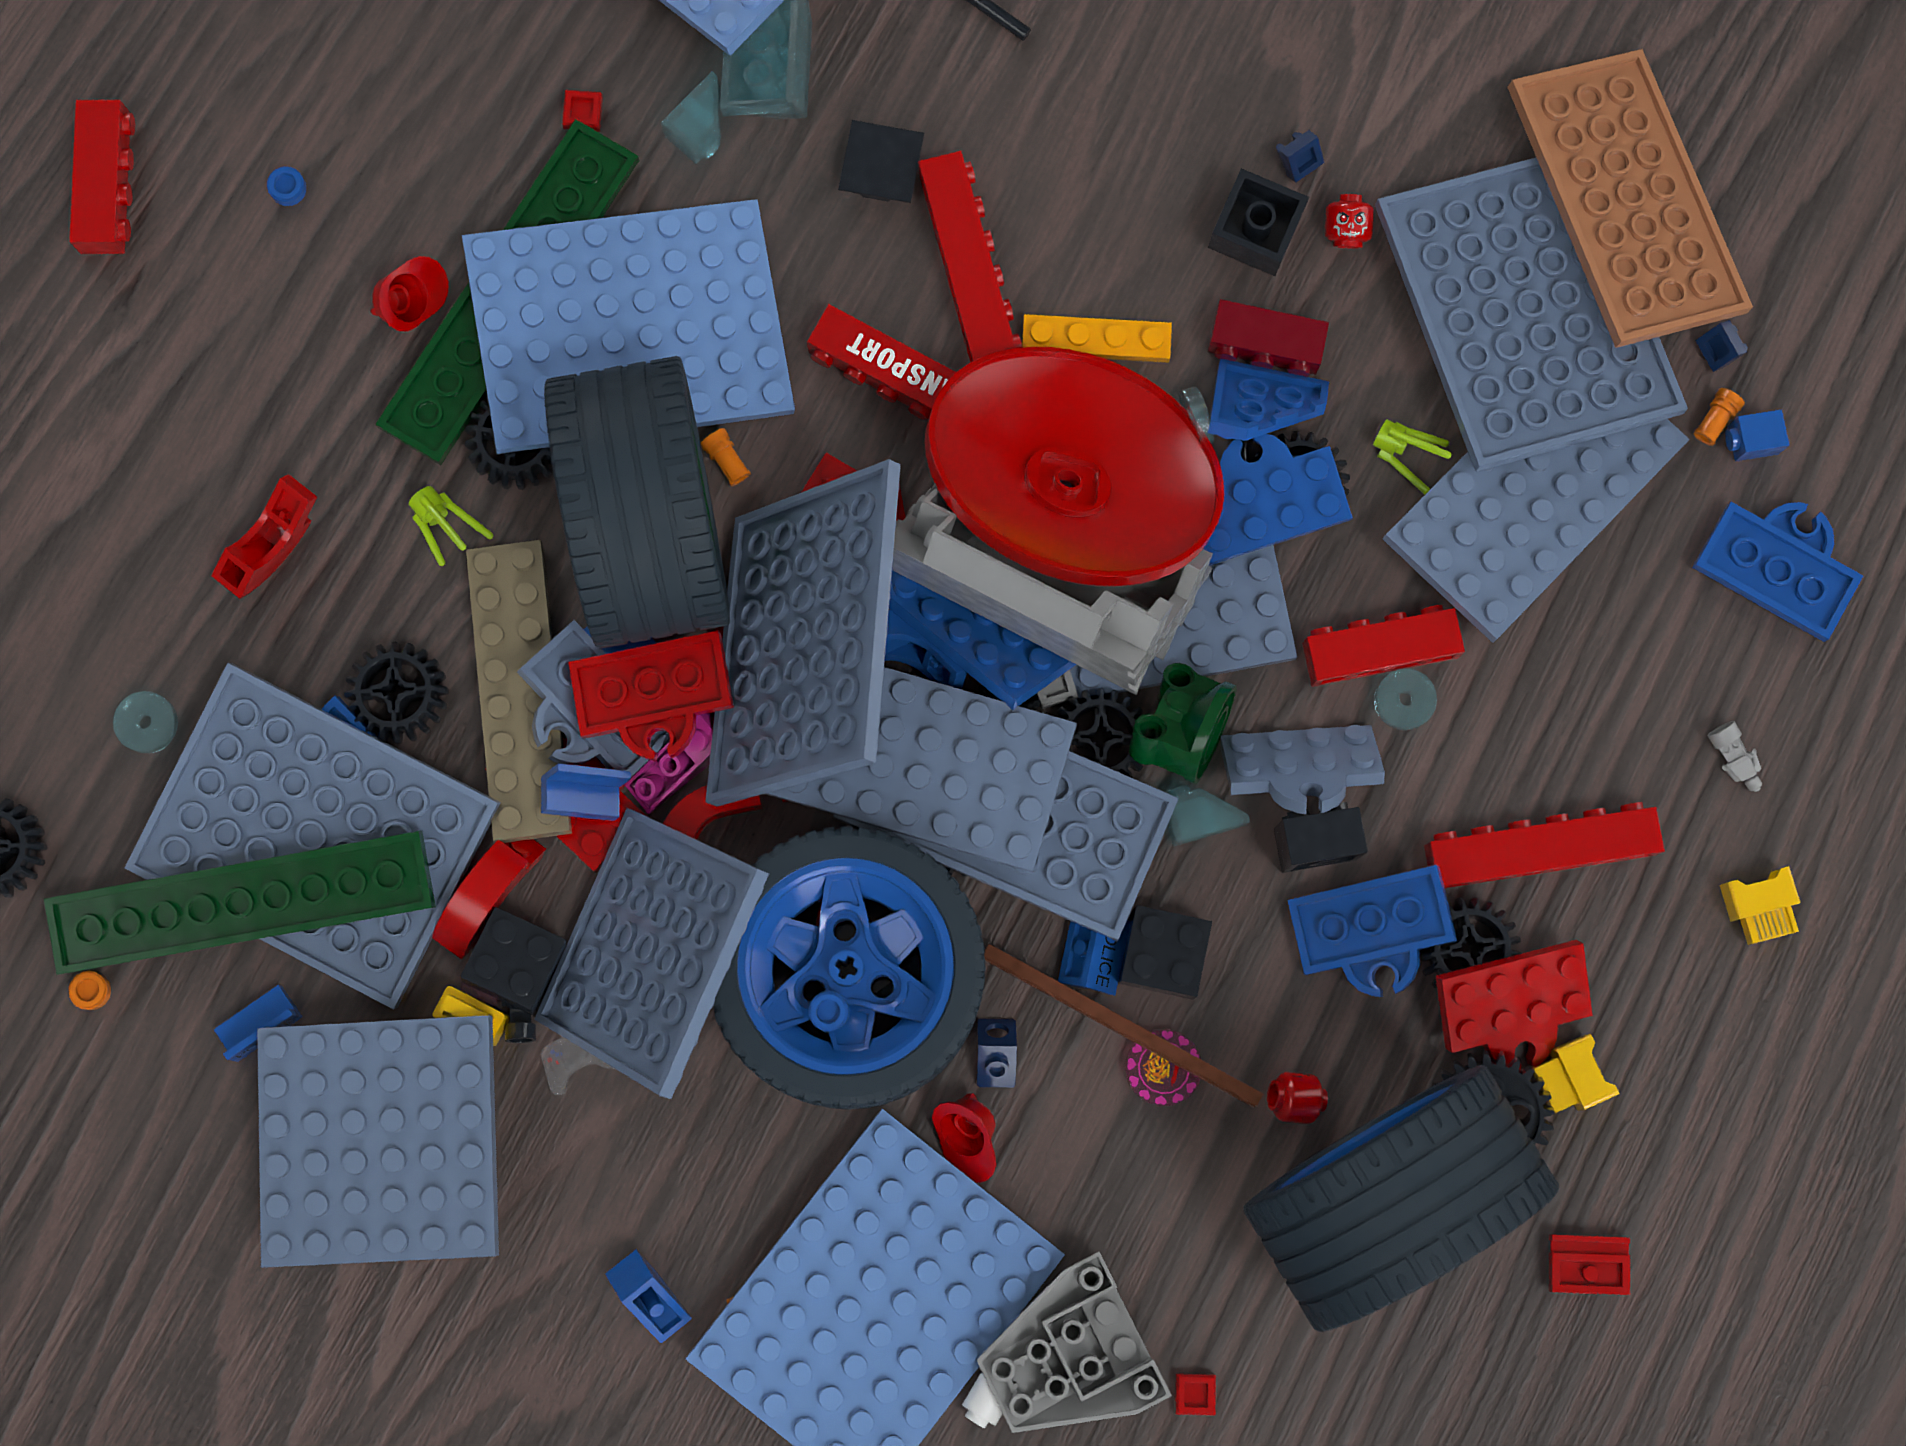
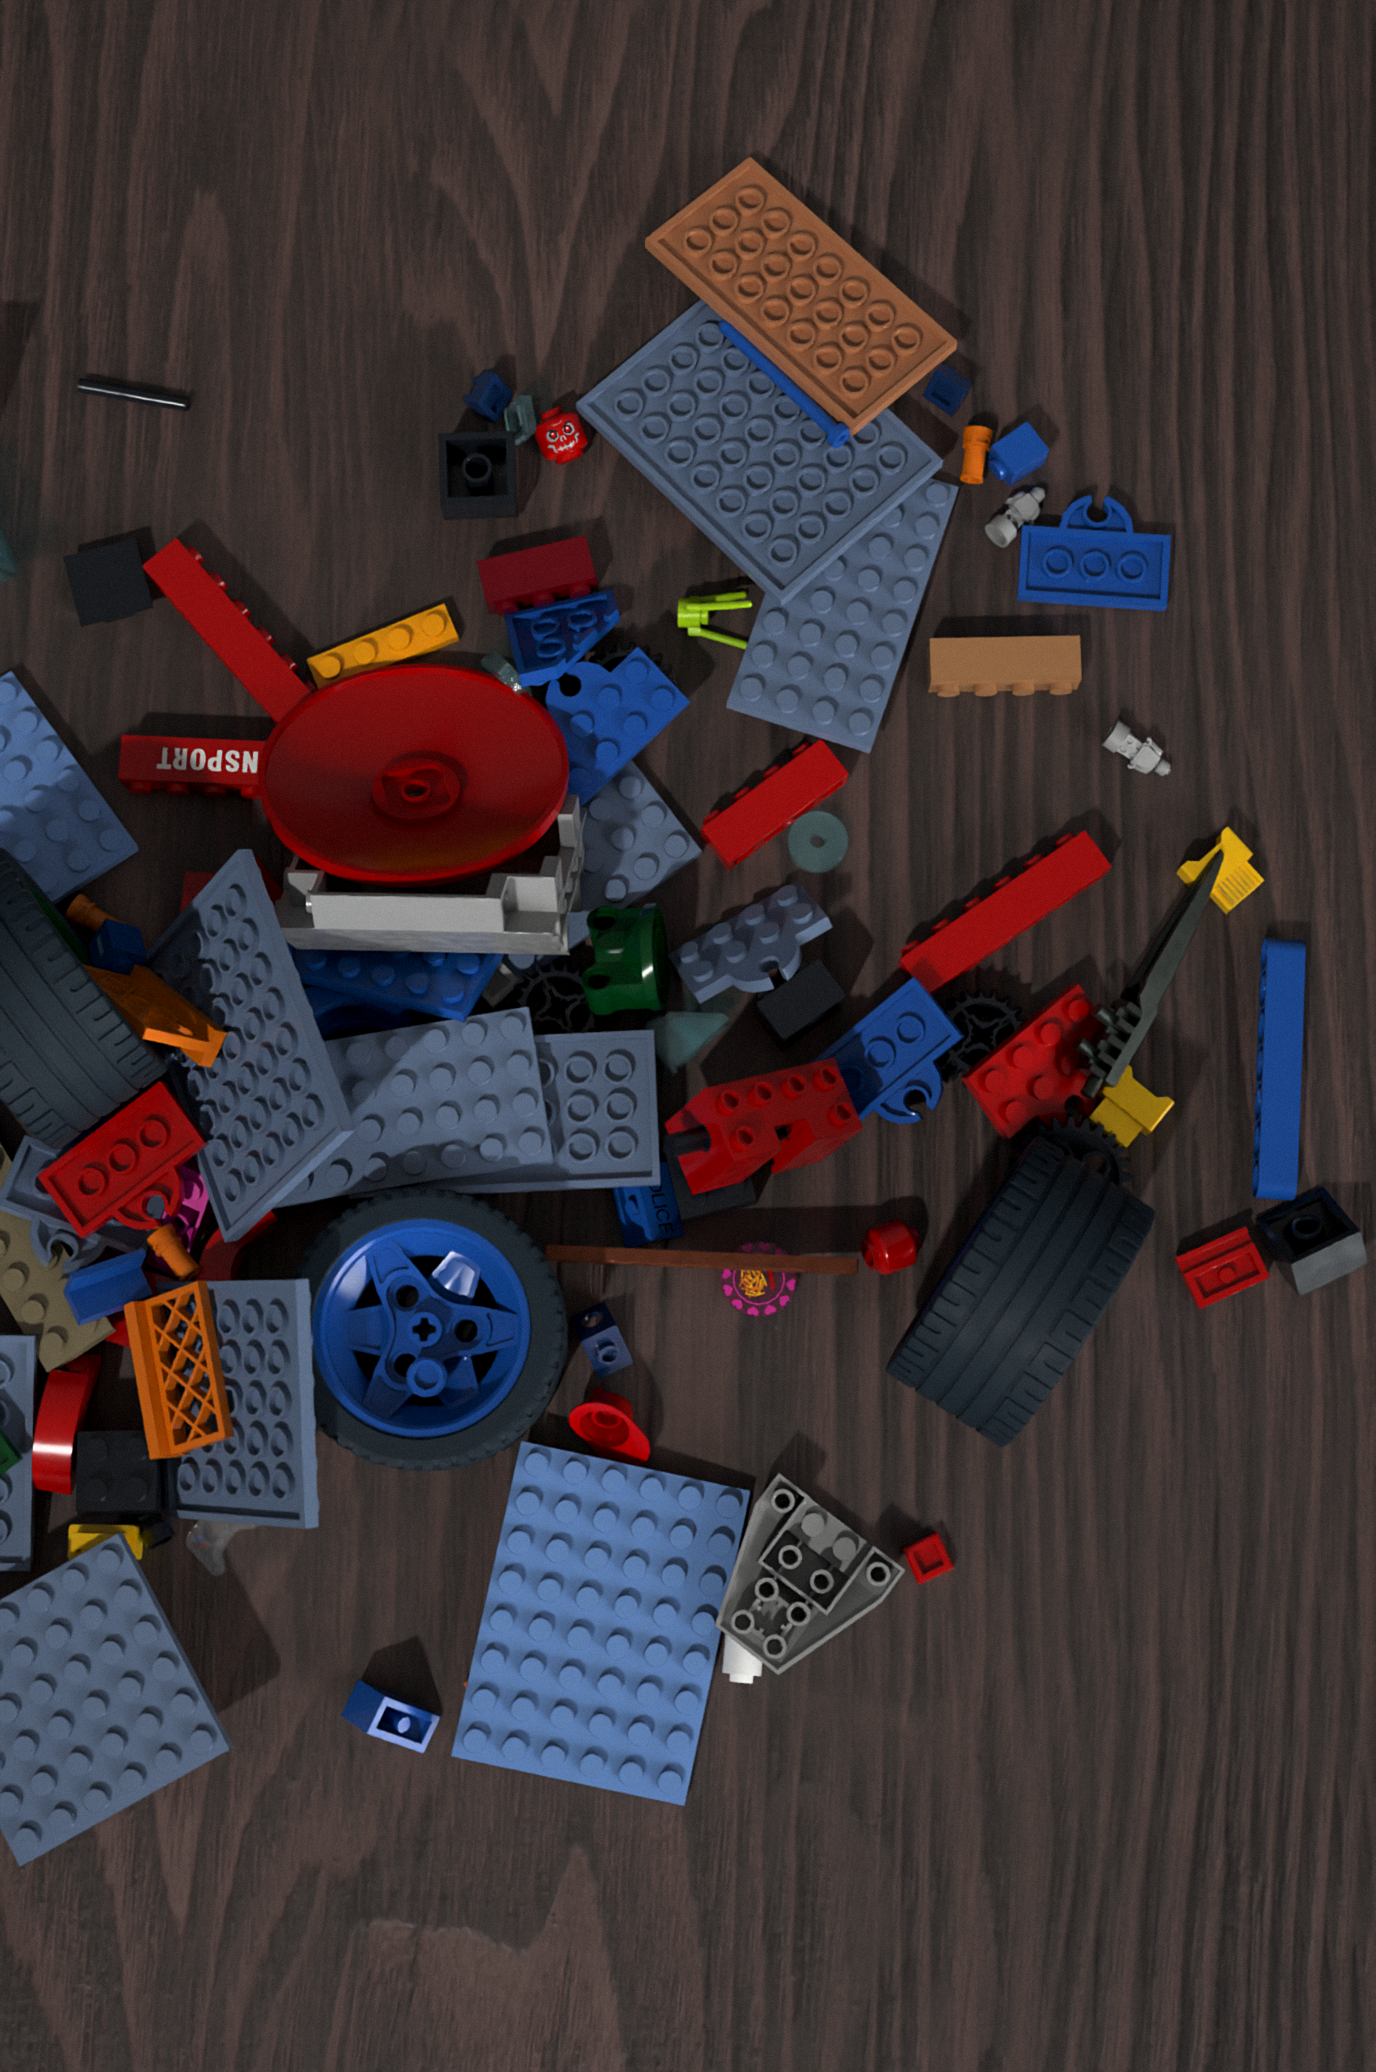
camera: 20 degrees left, 0 degrees up
(590, 892) = (158, 1372): none -> orange fence
(653, 780) = (168, 1245): none -> orange pin
(733, 495) = (117, 947): none -> blue brick
(750, 573) = (161, 1012): none -> orange fence
(1220, 924) = (742, 1124): none -> red piece
(1320, 189) = (520, 418): none -> clear light blue tile
(1602, 337) = (836, 432): none -> blue bar
(1637, 981) = (1142, 995): none -> pearl dark grey piece
(1653, 620) = (1004, 665): none -> medium nougat brick
(1684, 1281) = (1312, 1241): none -> black slope
(1729, 1109) = (1278, 1069): none -> blue beam
(1738, 487) = (1023, 509): none -> light grey piece

